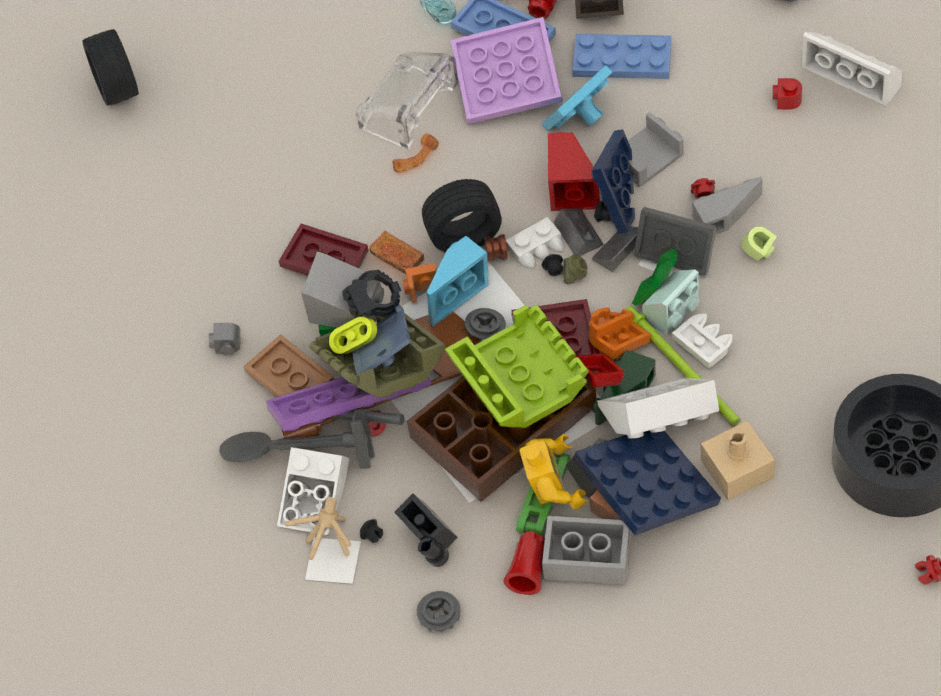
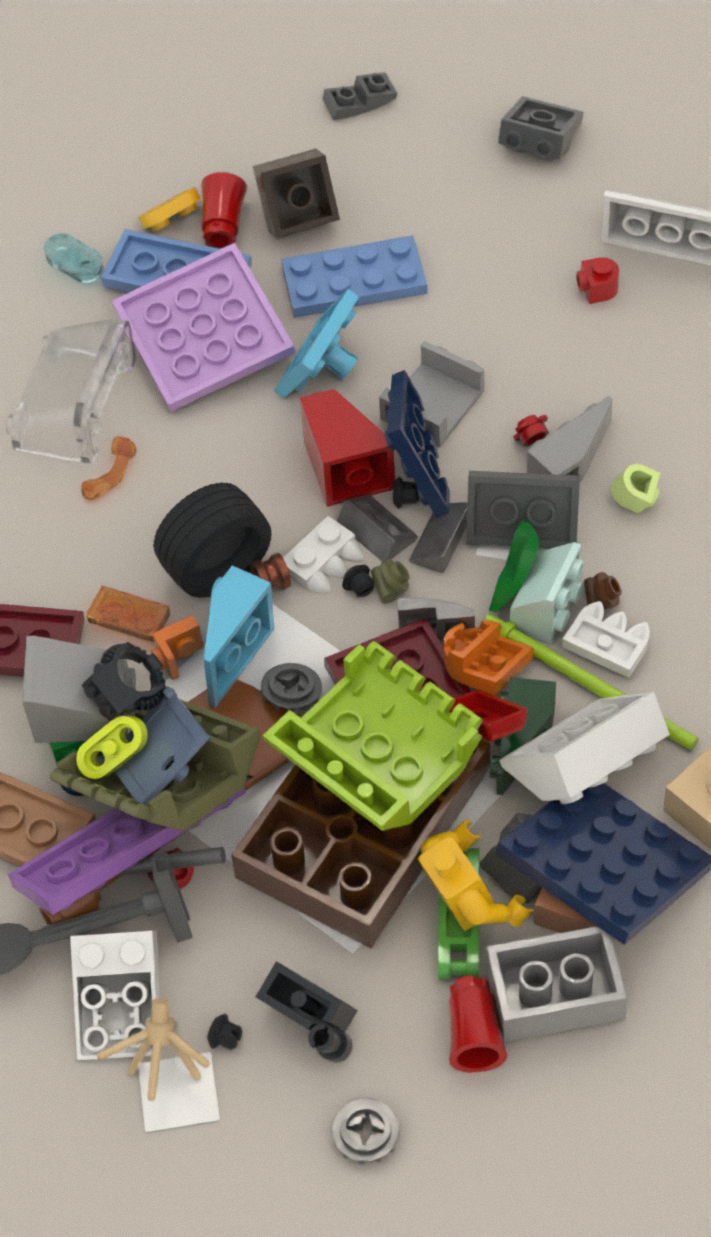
camera: 20 degrees left, 0 degrees up
(596, 298) = (439, 614): none -> flat silver slope
(713, 307) = (602, 589): none -> reddish brown plate

